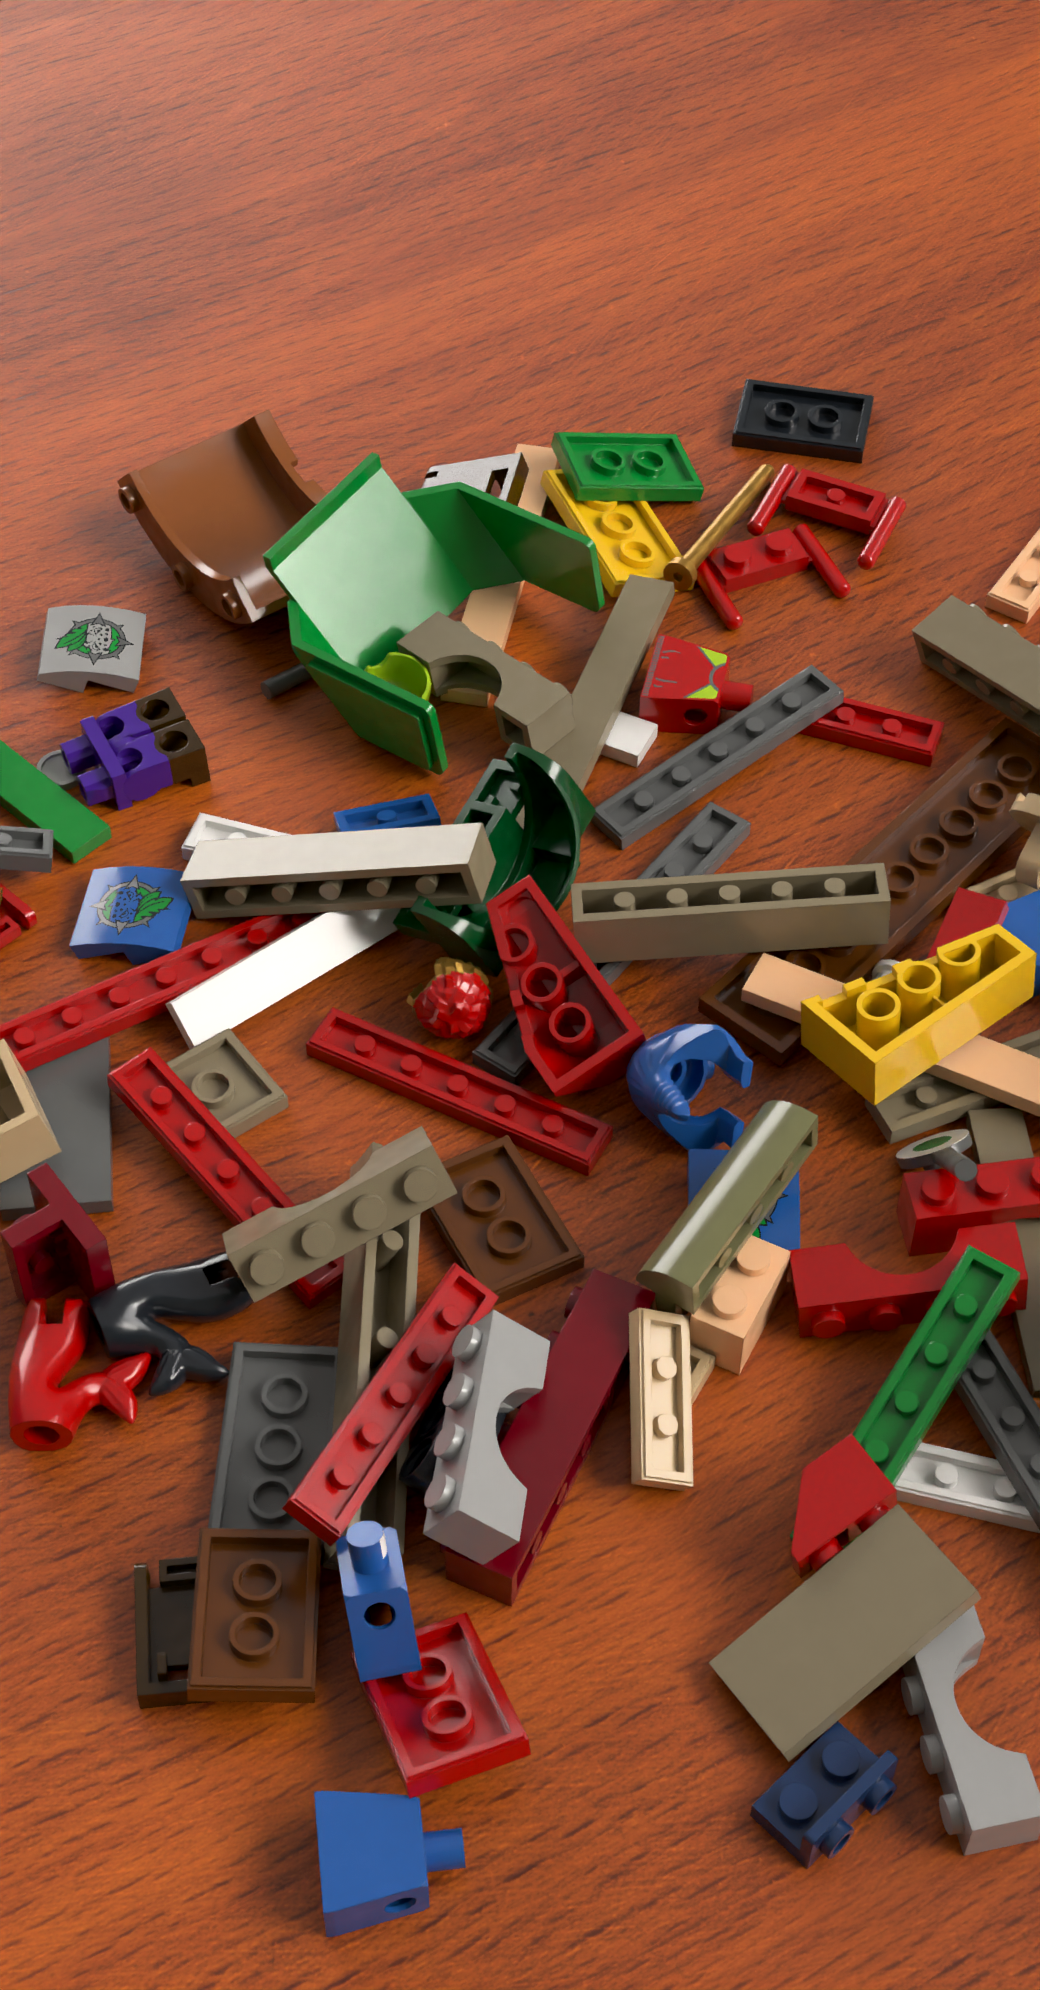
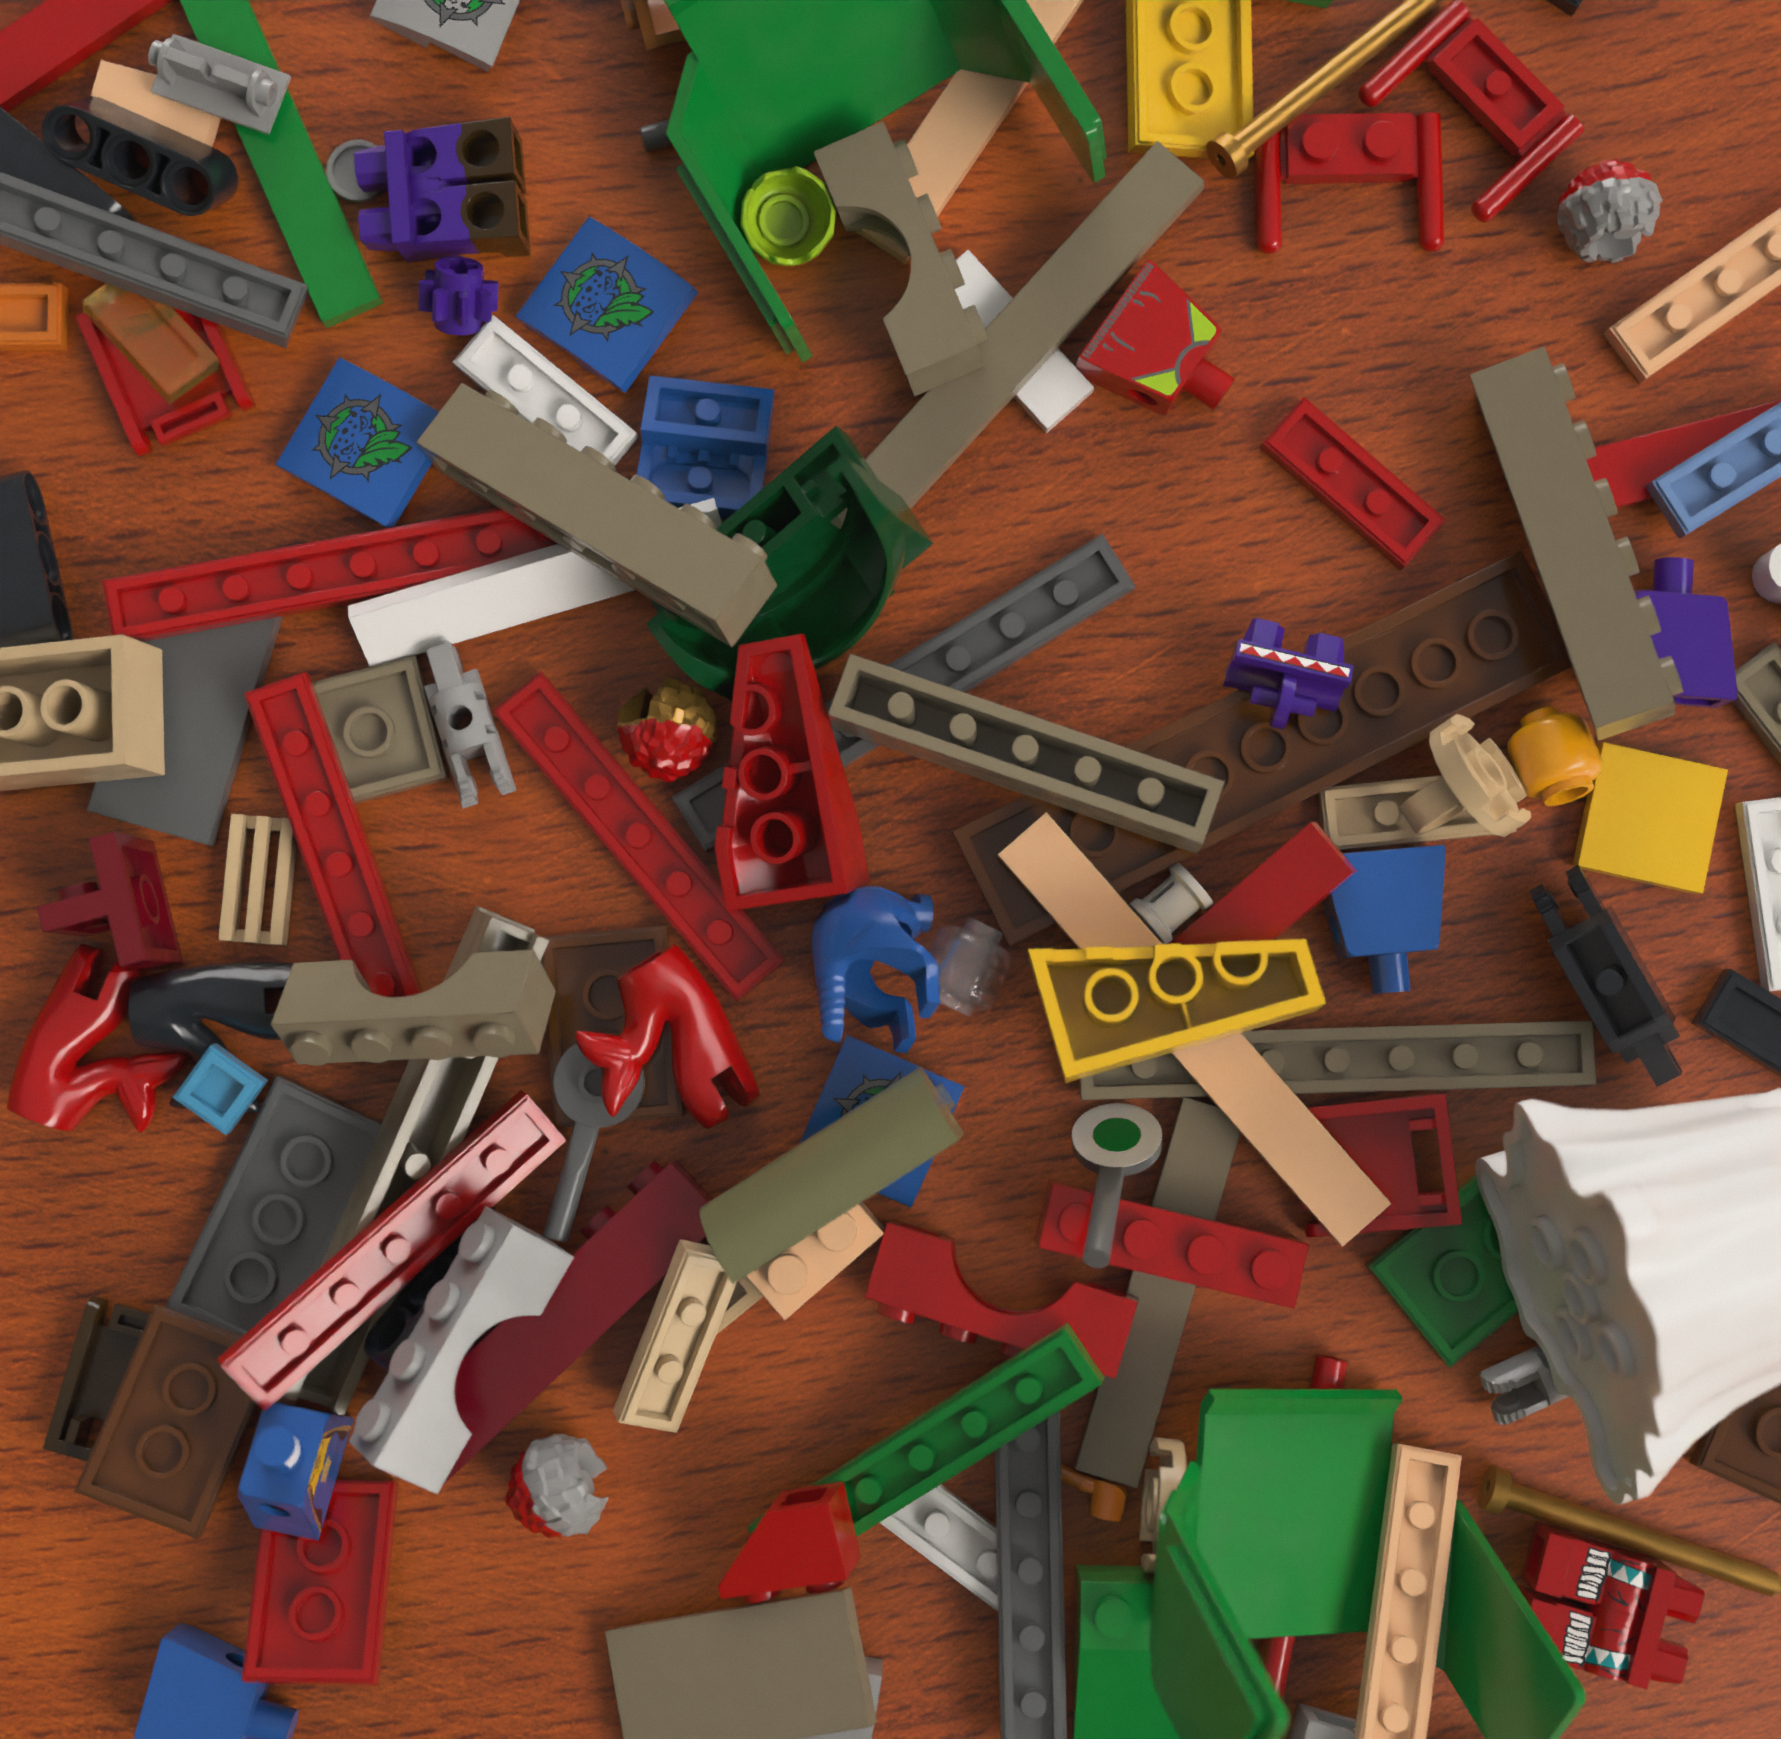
camera: 25 degrees right, 35 degrees up
(153, 1180) = (234, 880): none -> tan tile
(171, 802) = (458, 295): none -> dark purple gear
(192, 1354) = (220, 1088): none -> dark azure tile
(283, 781) = (607, 304): none -> blue slope
(289, 1055) = (451, 699): none -> light grey hinge
(507, 1254) = (580, 1098): none -> dark grey piece
(585, 1204) = (702, 1039): none -> red piece
(614, 1546) = (555, 1486): none -> light grey piece
(716, 757) = (1146, 467): dark grey tile -> none
(768, 1080) = (970, 966): none -> clear head
(889, 818) = (1287, 678): none -> dark purple hips
(944, 532) = (1608, 211): none -> light grey piece

